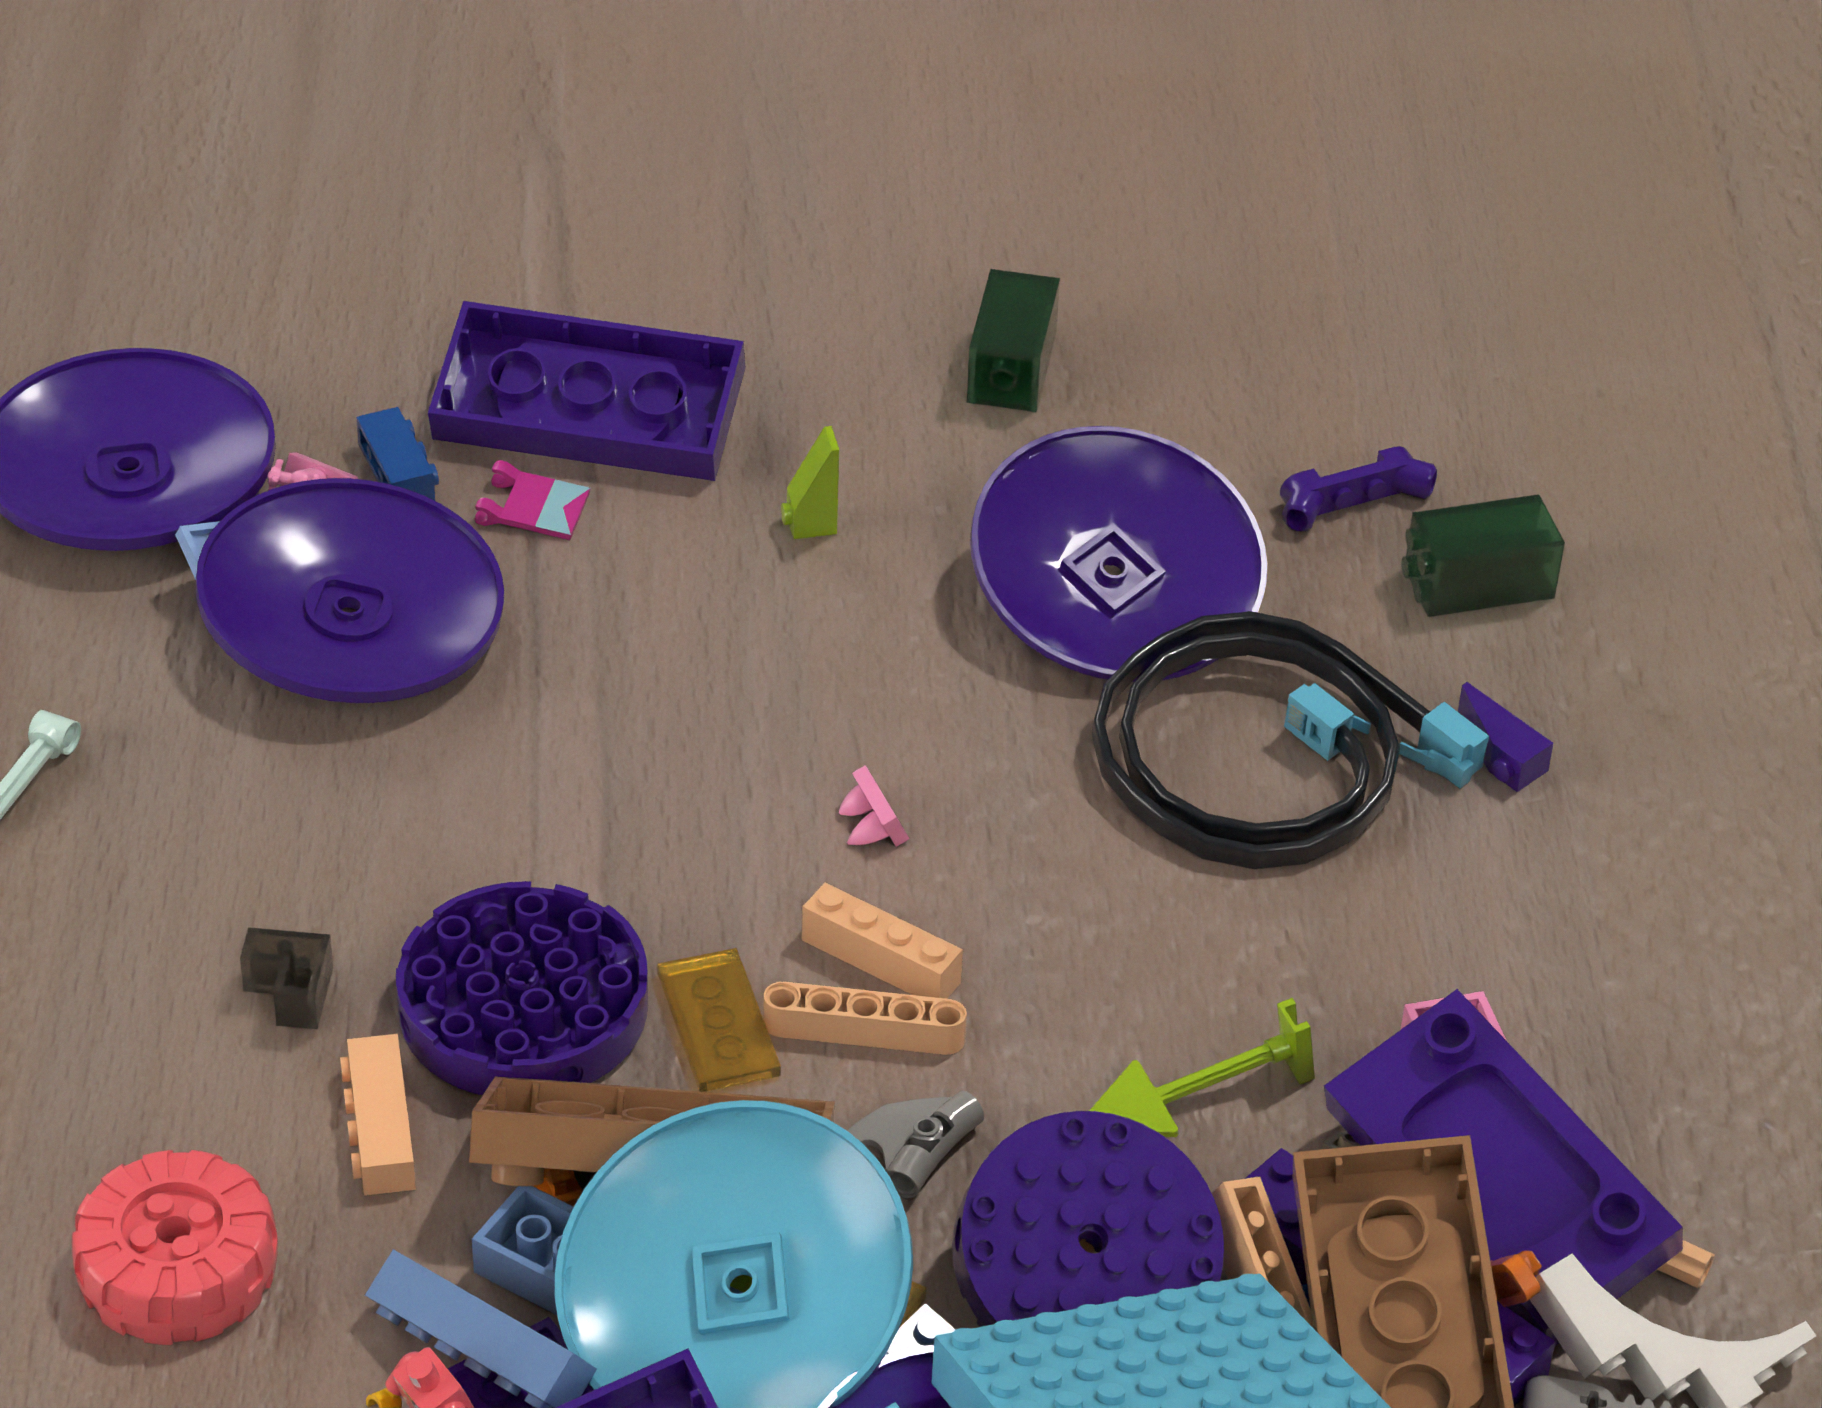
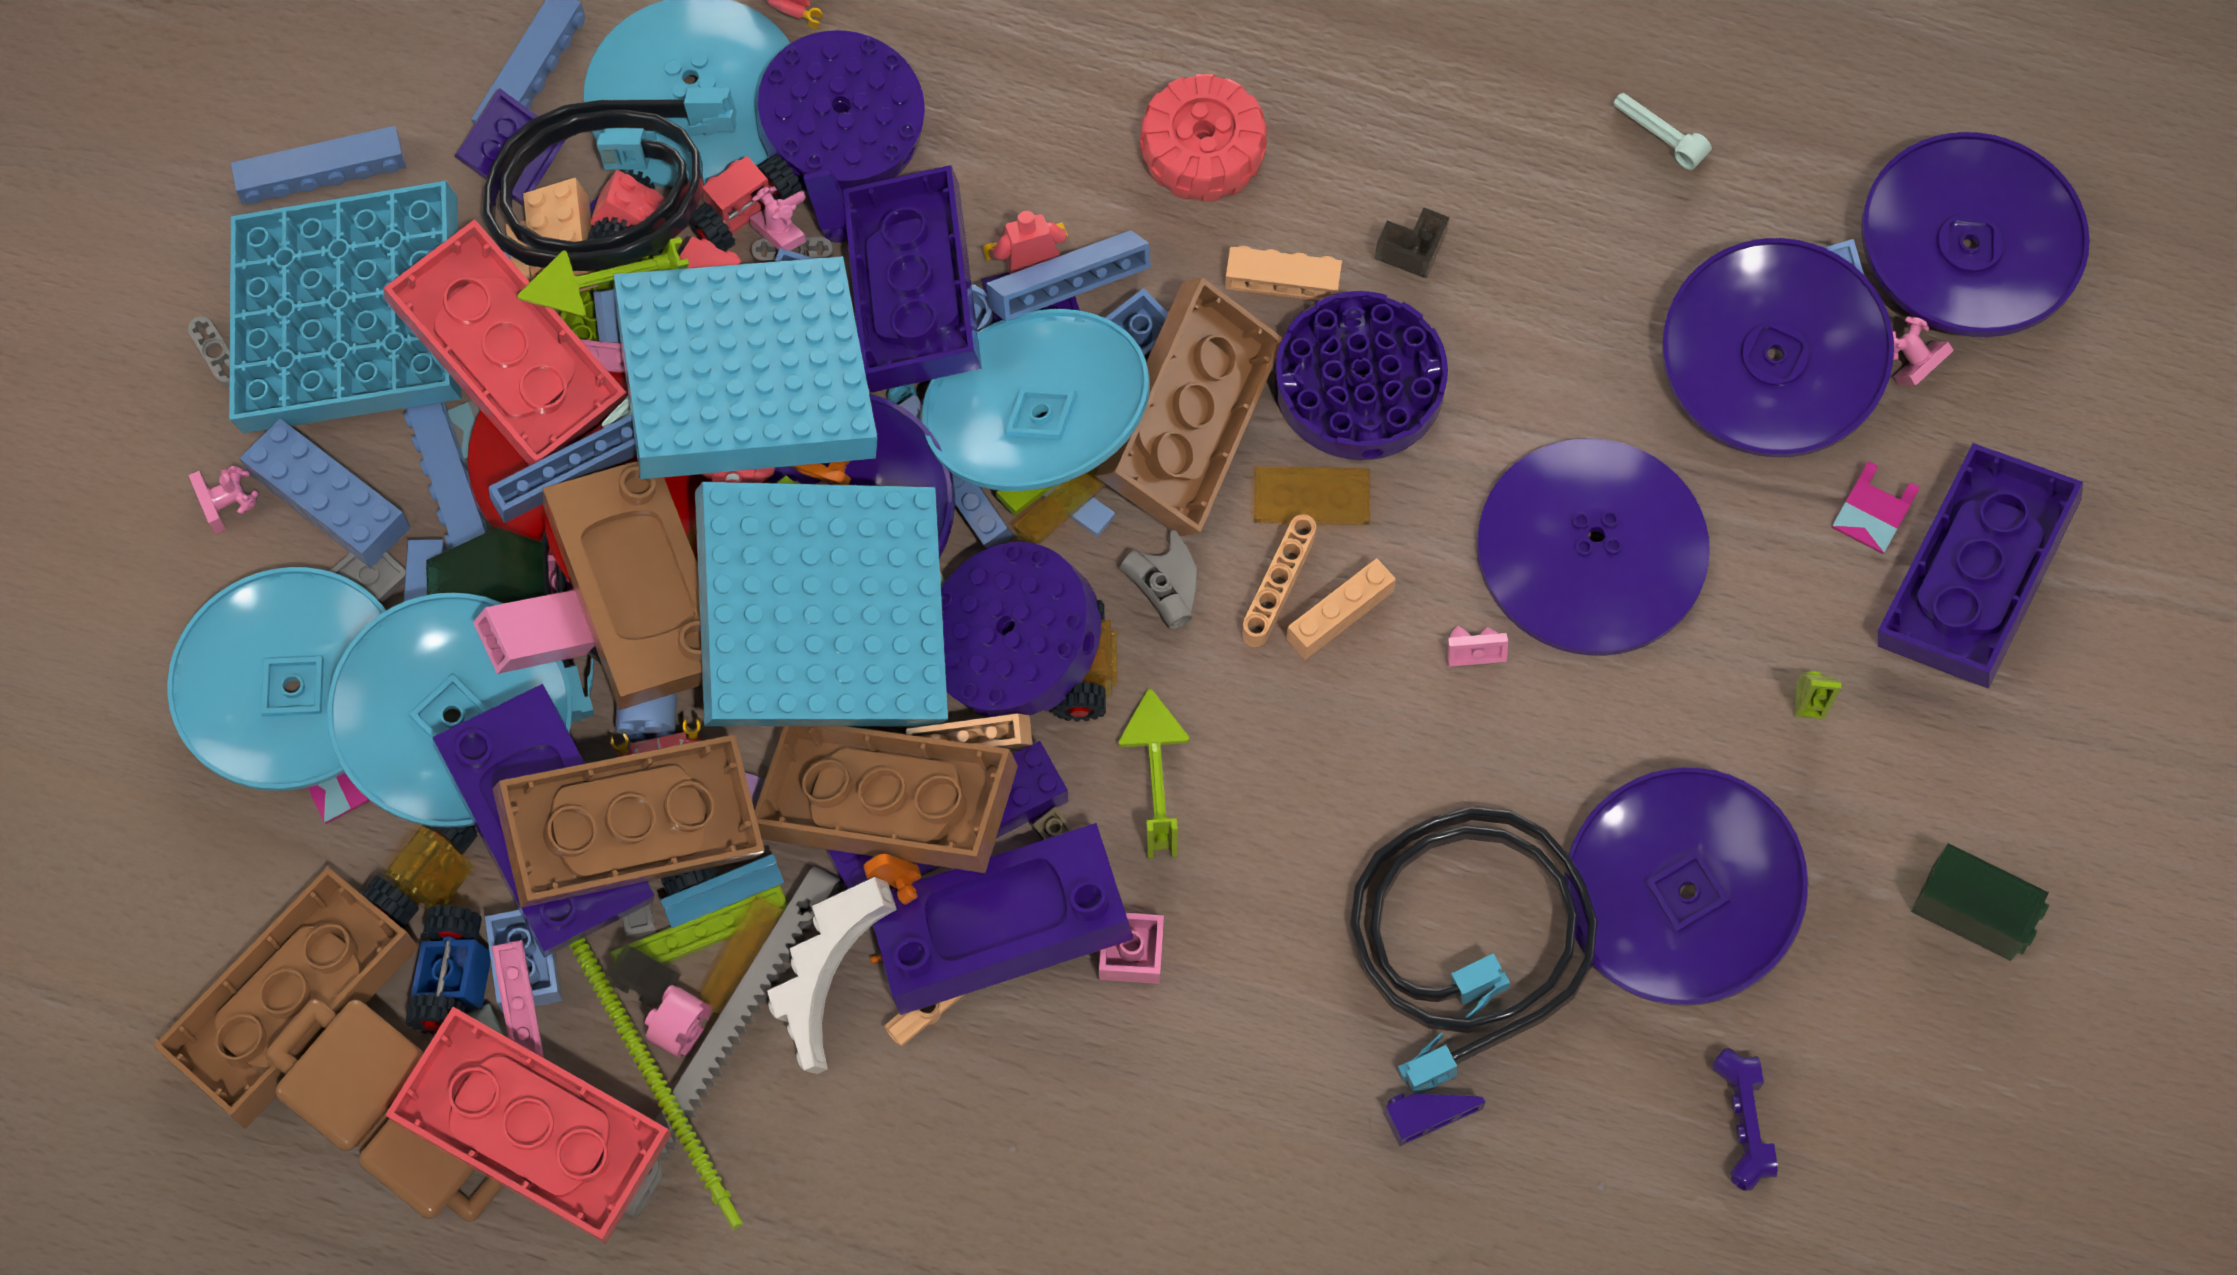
camera: 110 degrees right, 25 degrees up
(394, 453) = (1940, 421): blue brick -> none
(646, 777) = (1582, 591): none -> dark purple dish
(1483, 555) = (1627, 1174): clear green brick -> none

